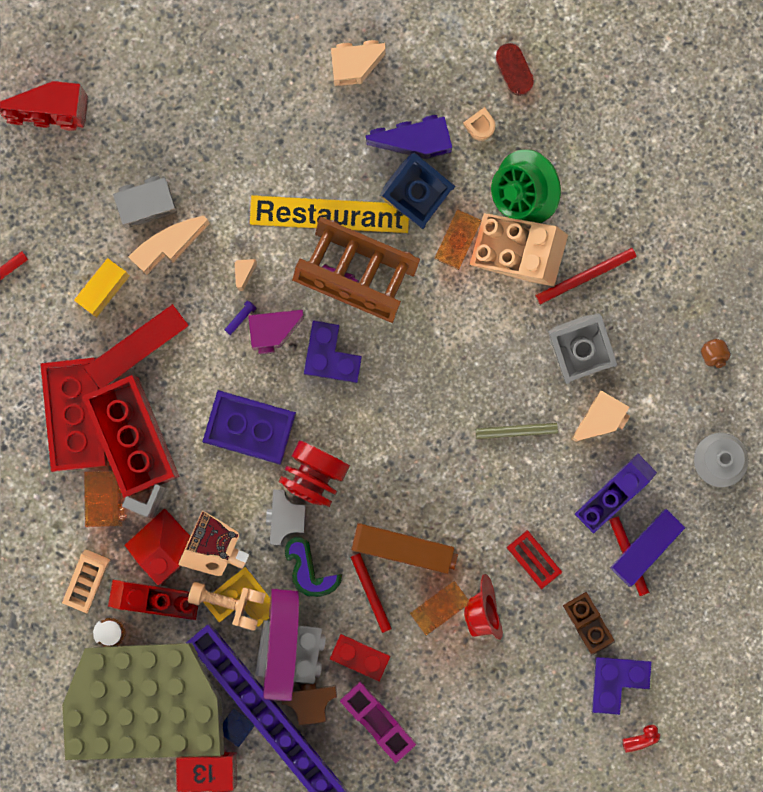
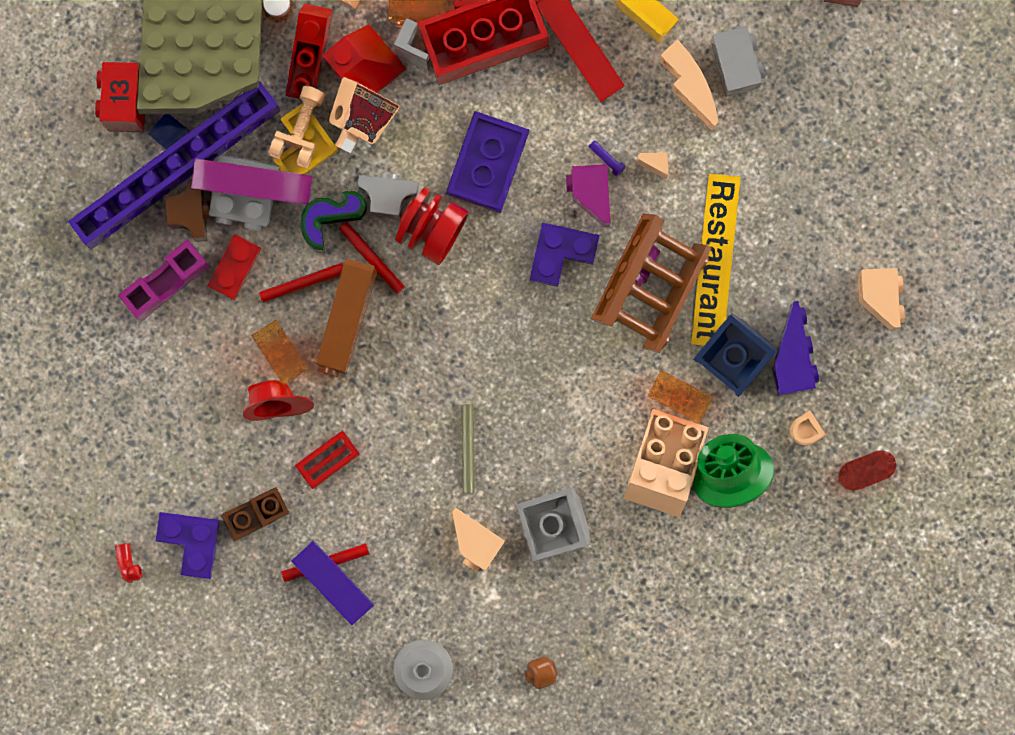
camera: 90 degrees right, 0 degrees up
(344, 529) = (371, 257): none -> red bar
(585, 276) = (633, 535): red bar -> none
(616, 493) = (393, 552): dark purple slope -> none

